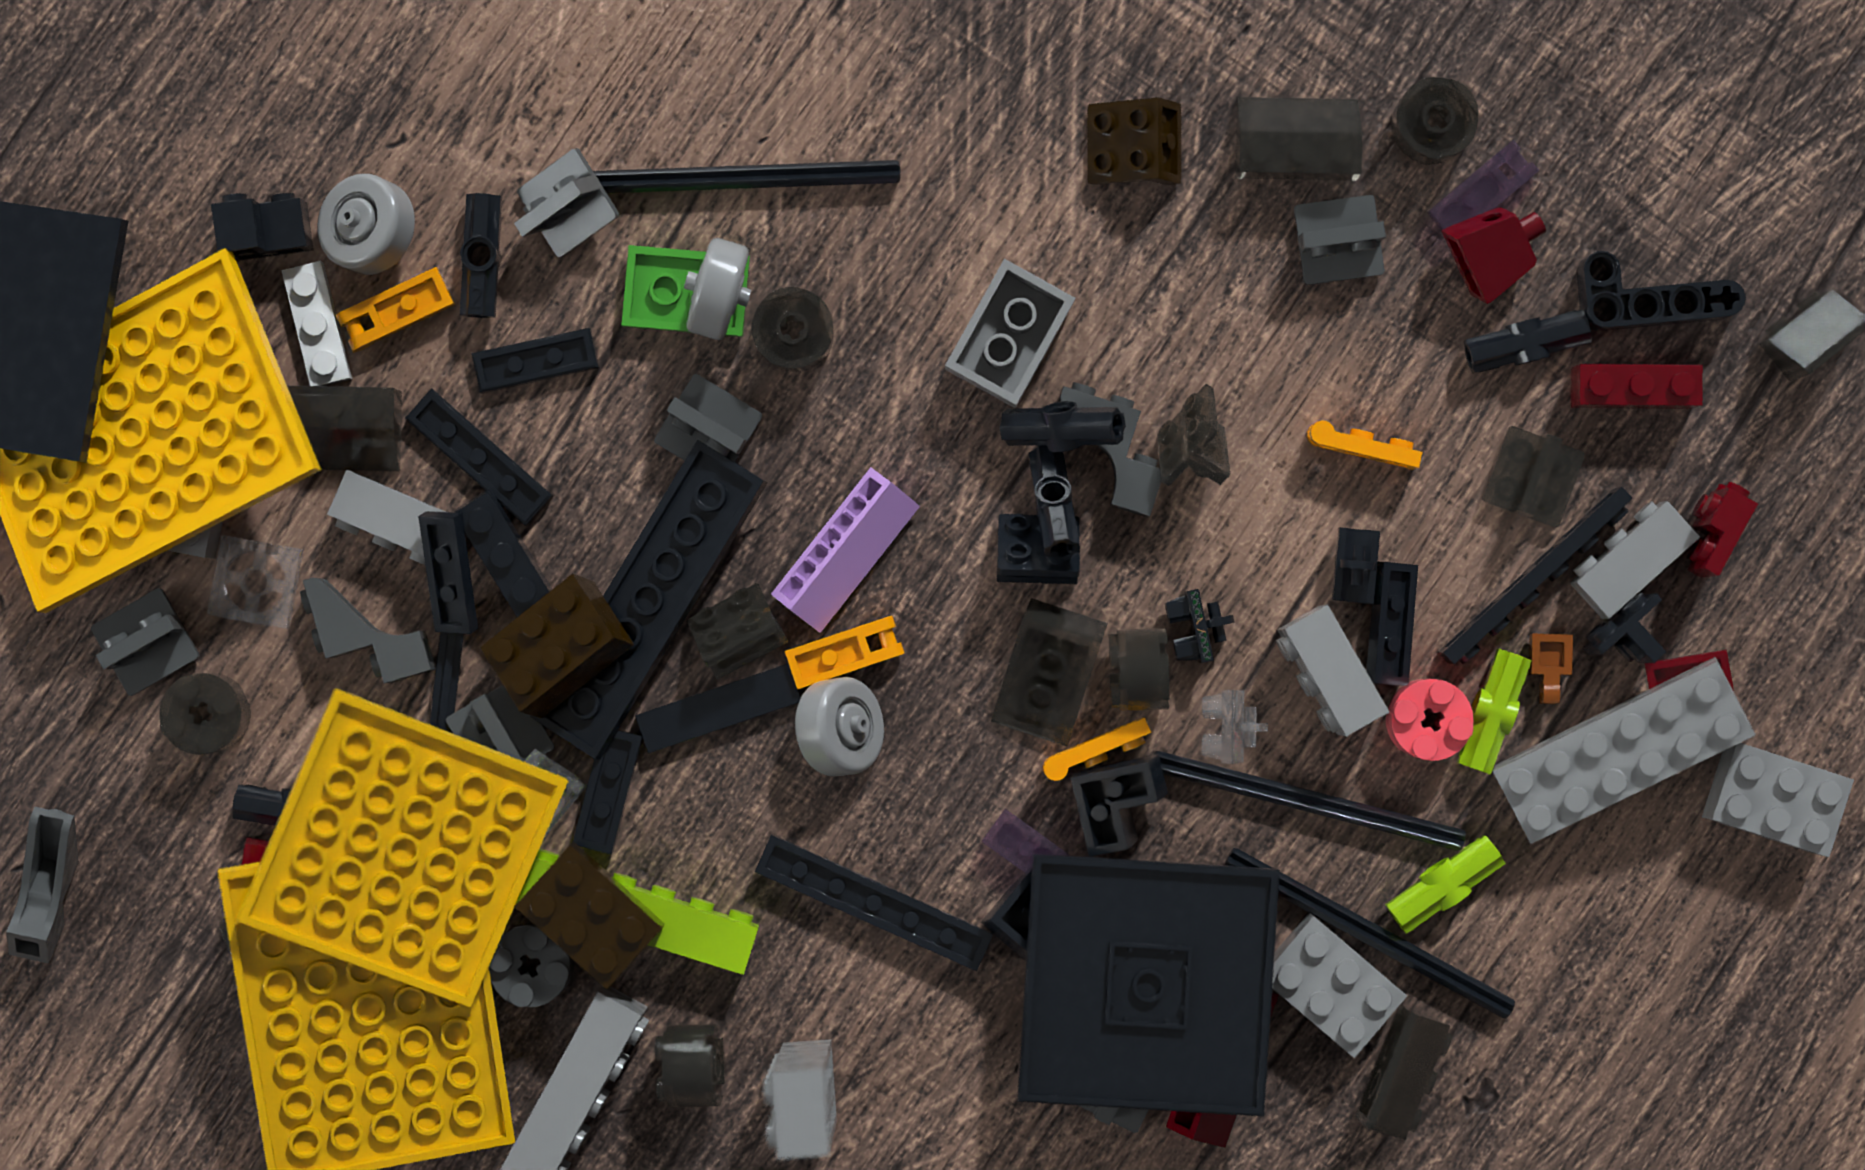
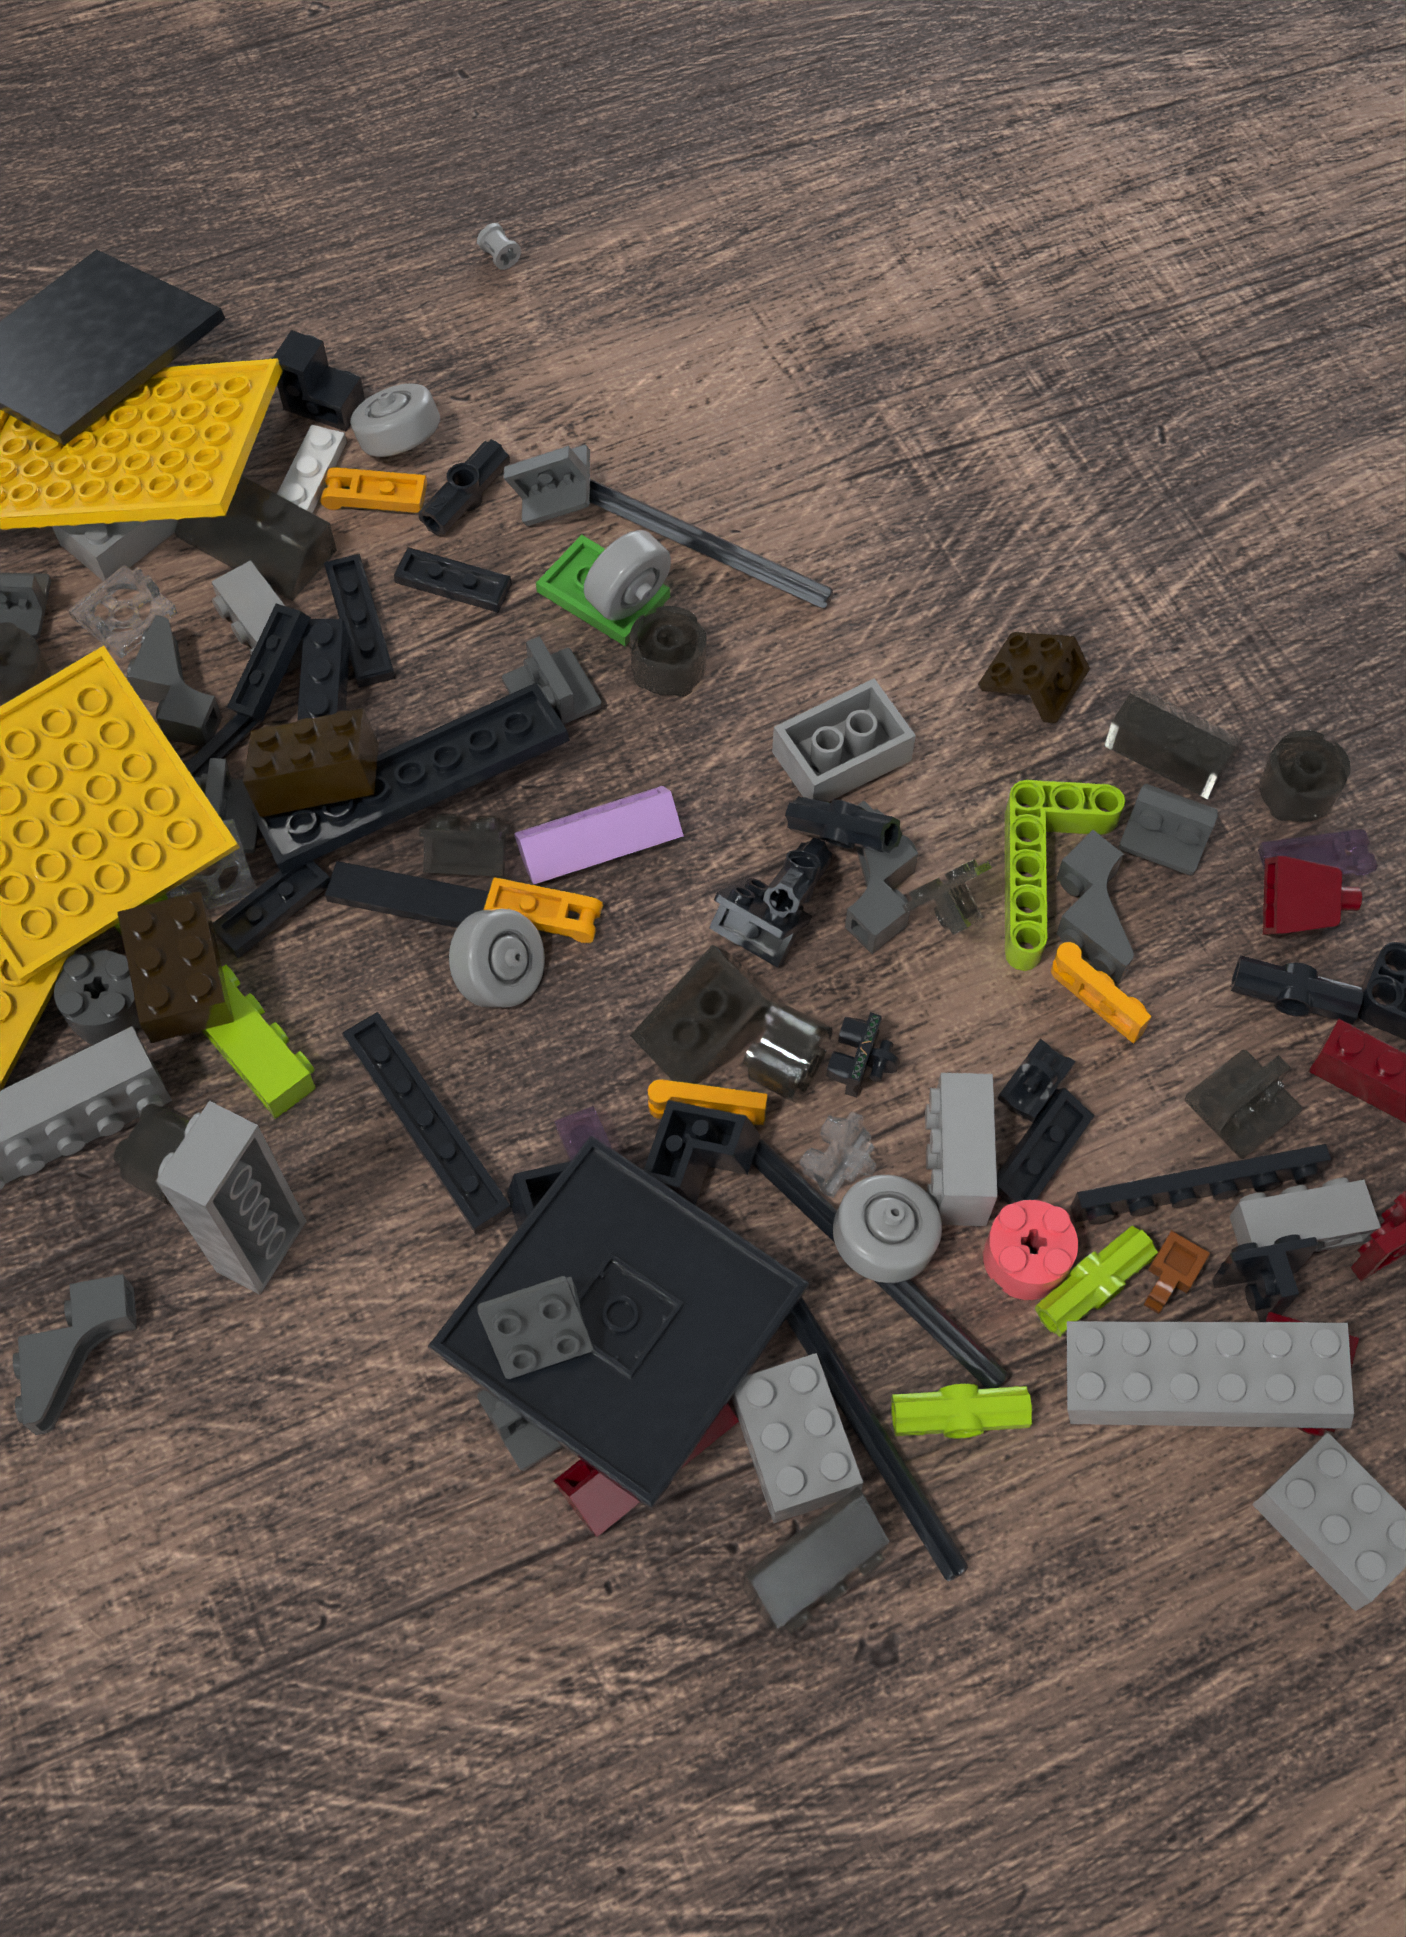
camera: 25 degrees right, 25 degrees down
(1094, 1040) = (536, 1326): none -> dark grey bracket
(1239, 343) = (1031, 856): none -> lime beam
(1308, 775) = (887, 1228): none -> light grey wheel
(1321, 380) = (1092, 918): none -> dark grey arch

